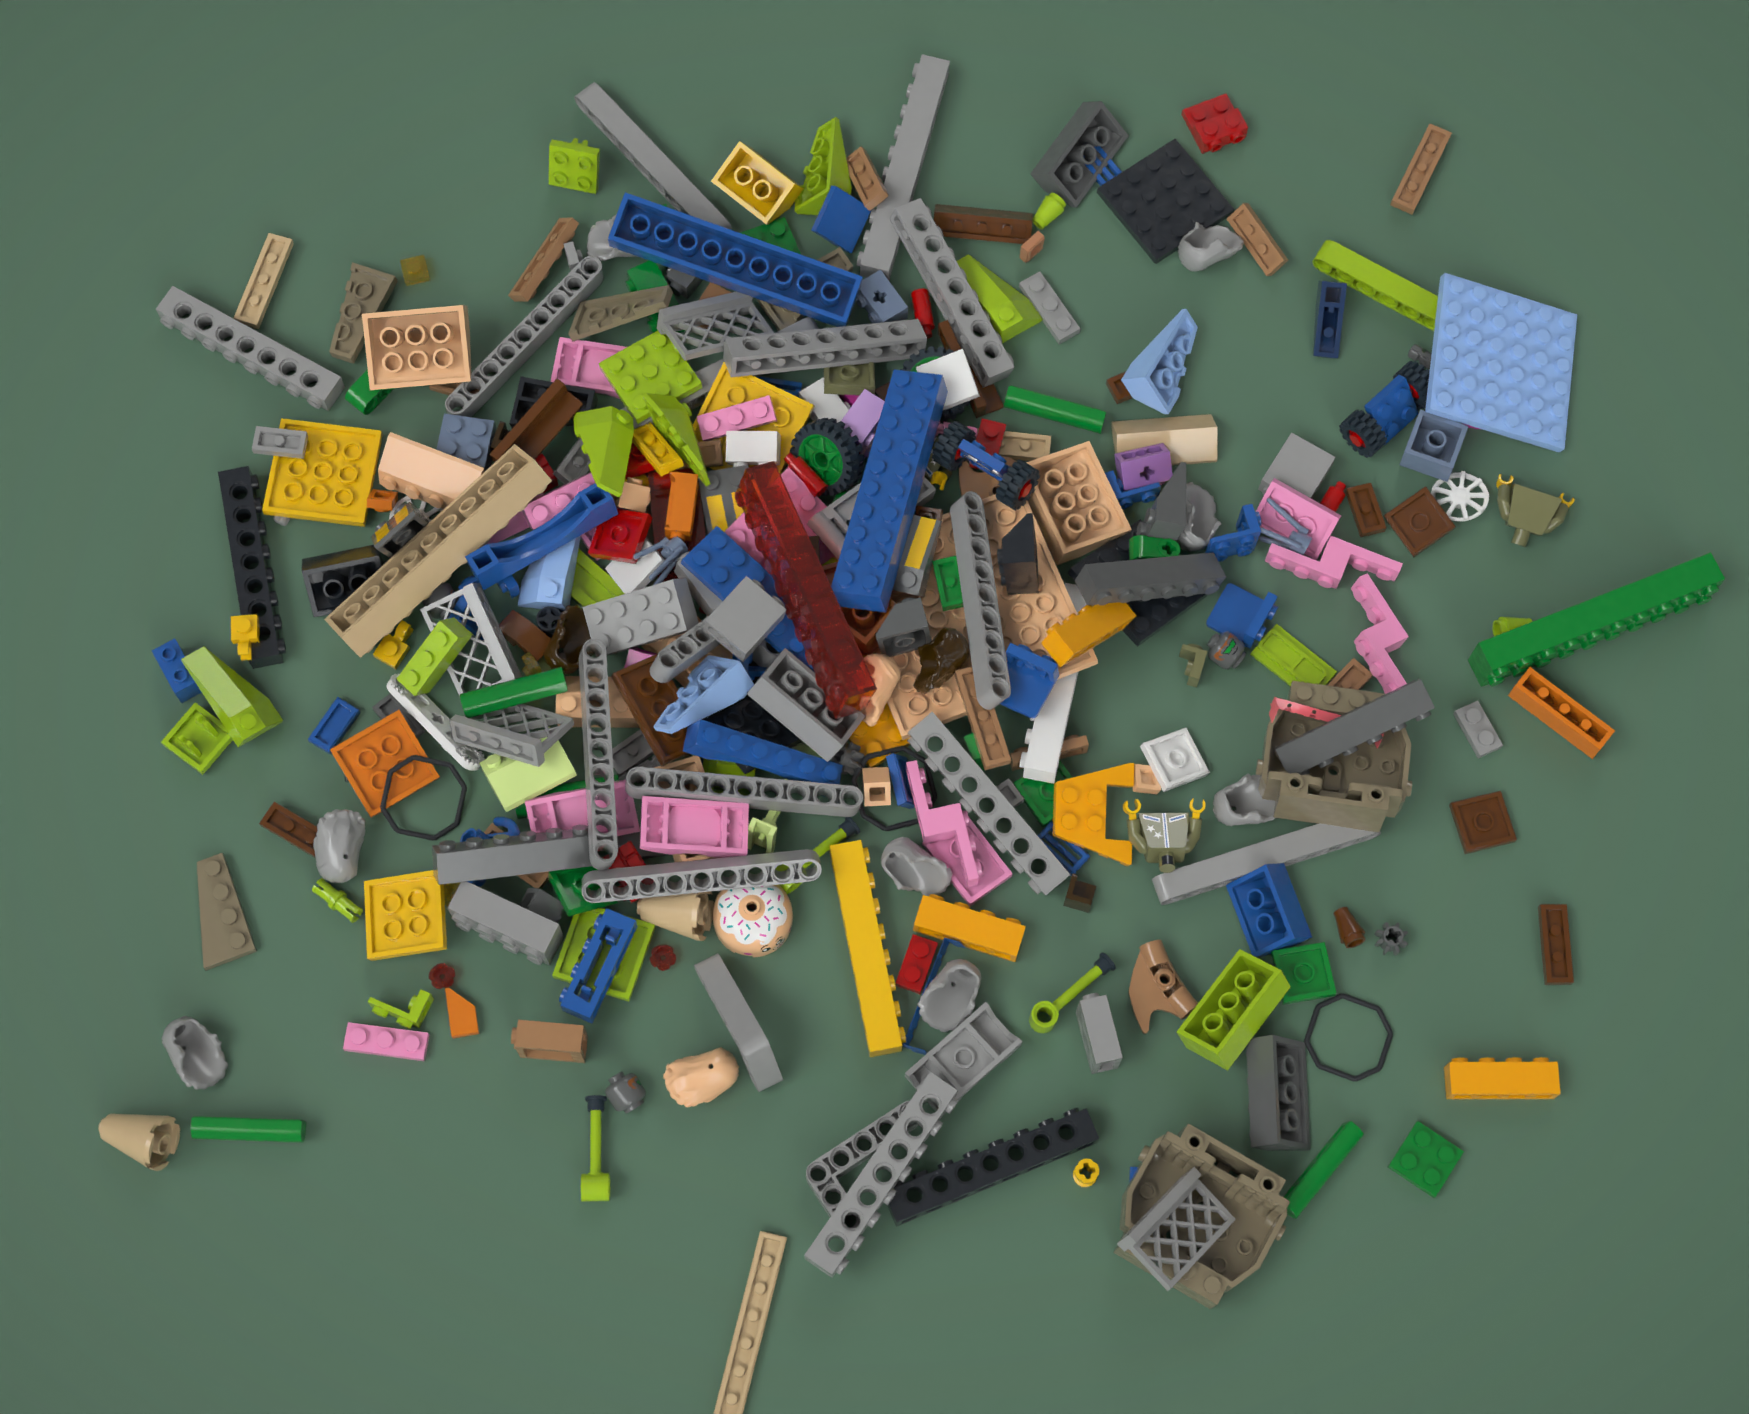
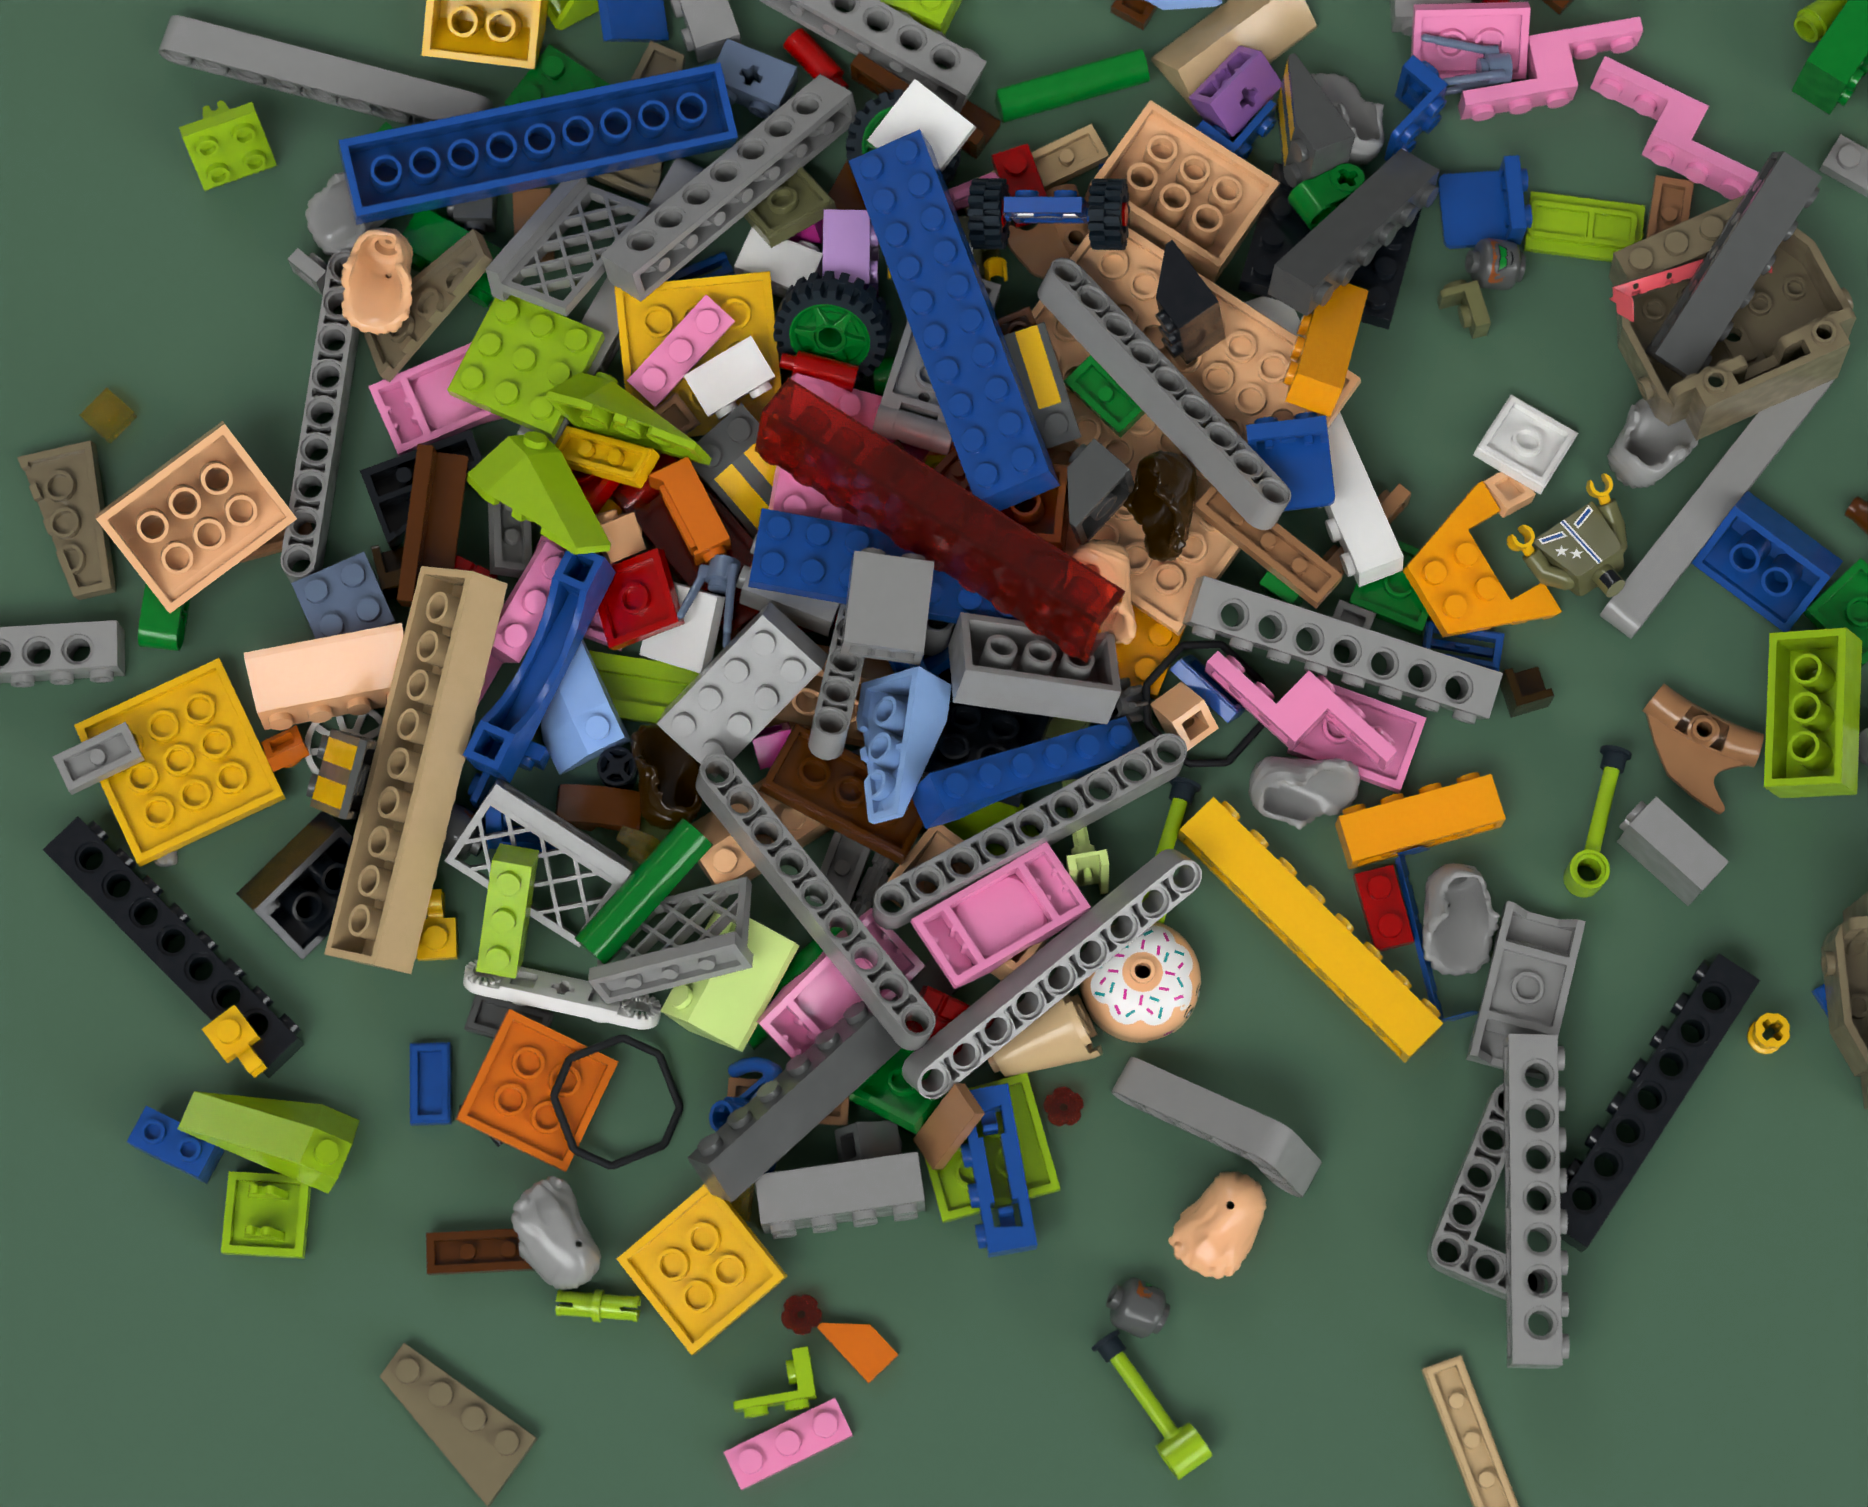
camera: 30 degrees left, 5 degrees up
(544, 258) = (272, 296): medium nougat plate -> none
(550, 1041) = (1003, 1306): medium nougat window -> none
(587, 922) = (948, 1126): none -> medium nougat tile
(600, 282) = (378, 281): none -> light nougat piece

